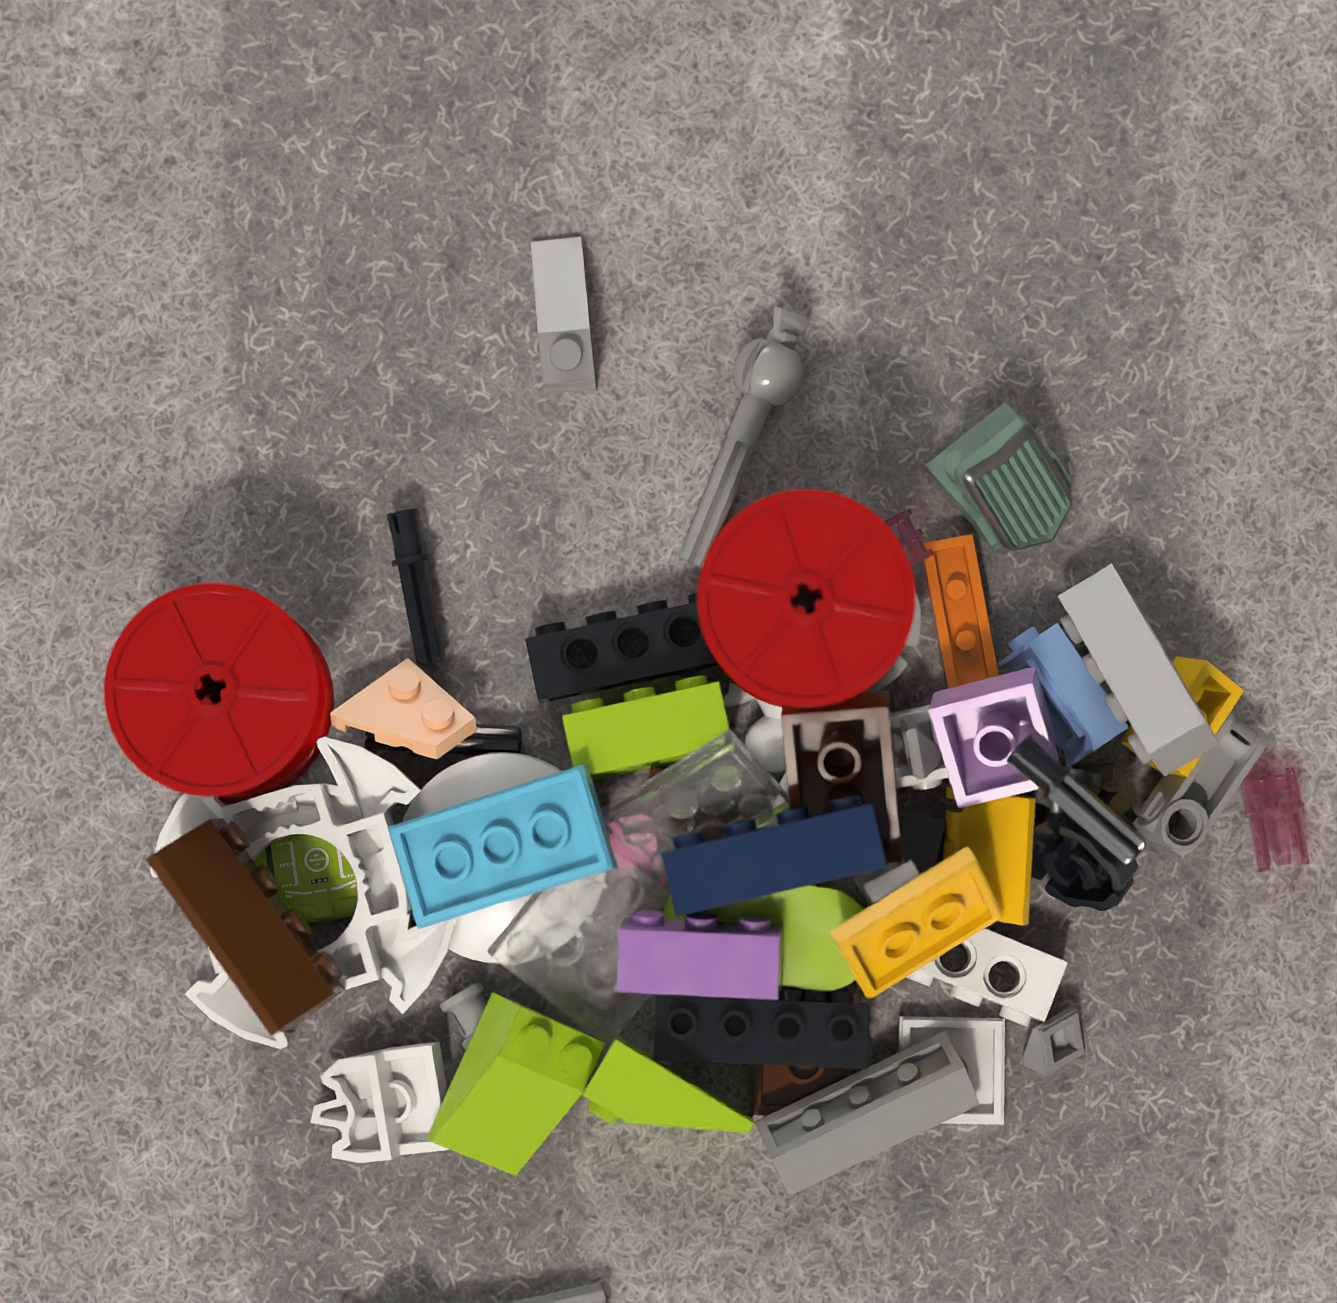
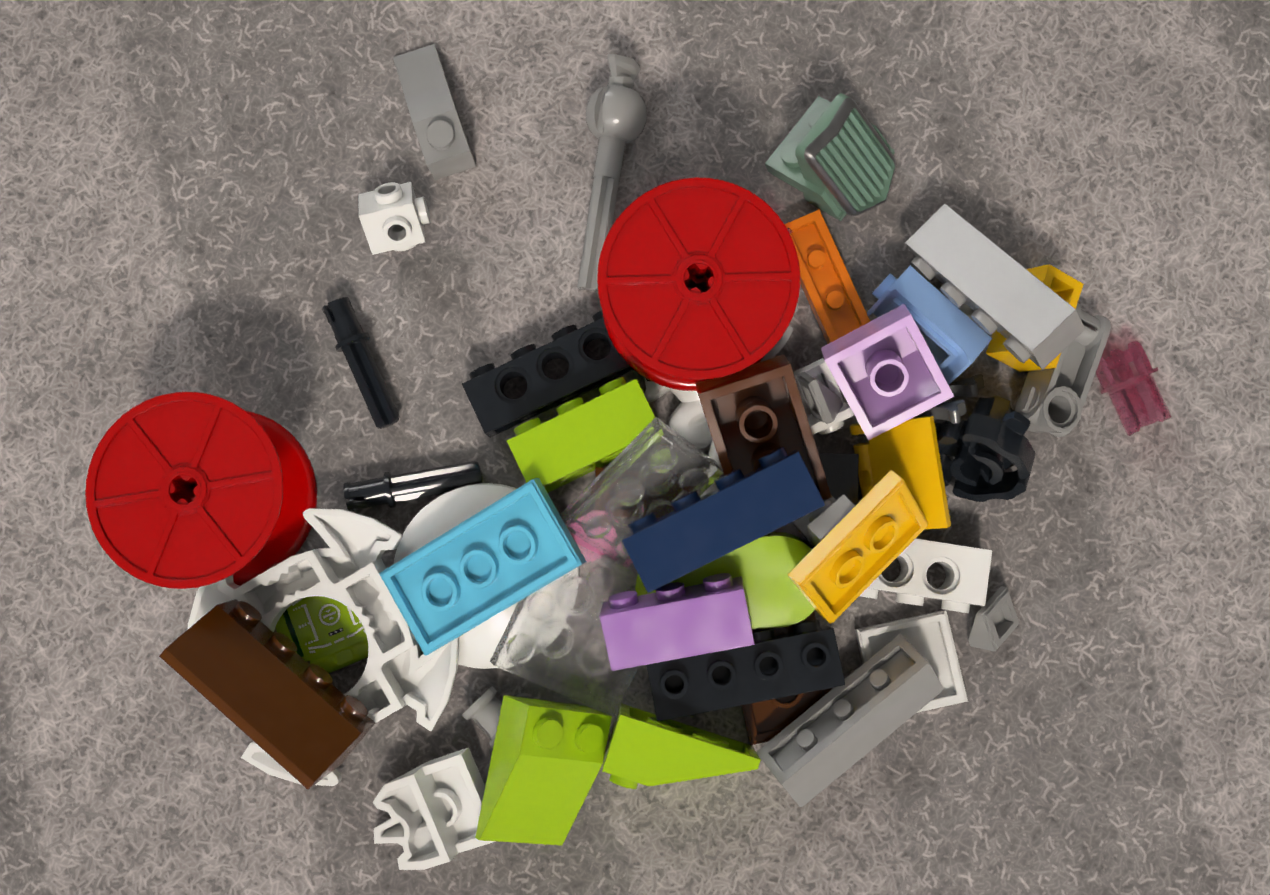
camera: 15 degrees left, 0 degrees up
(407, 712) = (376, 470): light nougat wing -> none
(490, 431) = (393, 217): none -> white brick
(1076, 800) = (974, 407): black axle -> none

